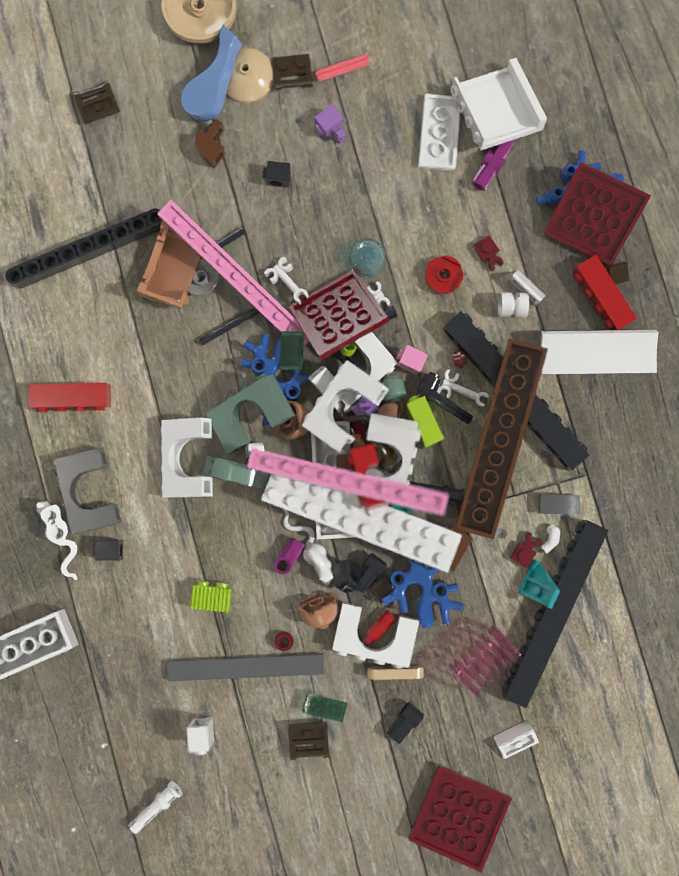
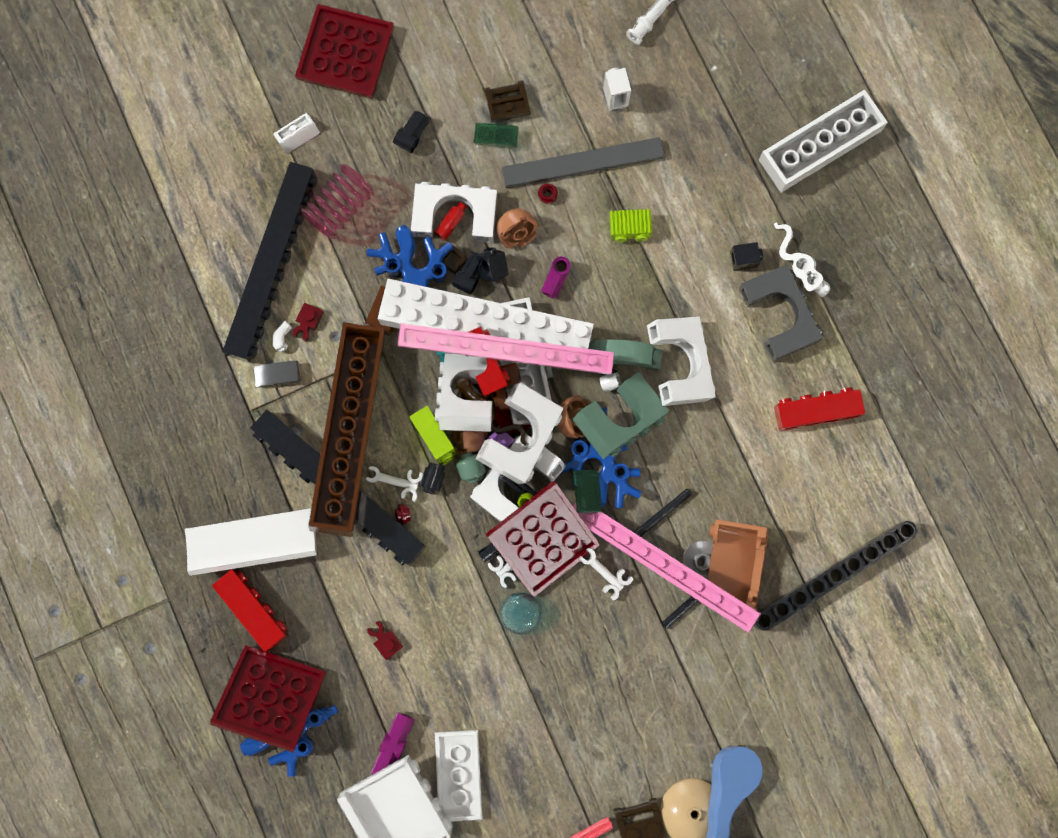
camera: 175 degrees right, 5 degrees down
(98, 107) = (854, 745): dark brown plate -> none
(207, 143) = (723, 716): reddish brown brick -> none
(277, 174) = (637, 694): black brick -> none
(313, 553) = (529, 285): white animal -> none
(329, 123) = (586, 765): medium lavender brick -> none
(390, 672) = (436, 177): tan beam -> none
(411, 359) = (455, 503): bright pink brick -> none
(434, 280) = (426, 595): red plate -> none
(449, 406) = (408, 459): black axle -> none
(455, 495) = (405, 367): black pin -> none
(513, 304) = (350, 582): white wheel -> none
(526, 286) = (336, 607): white slope -> none
(539, 585) = (289, 285): teal wing -> none
(618, 272) = (236, 637): dark brown tile -> none

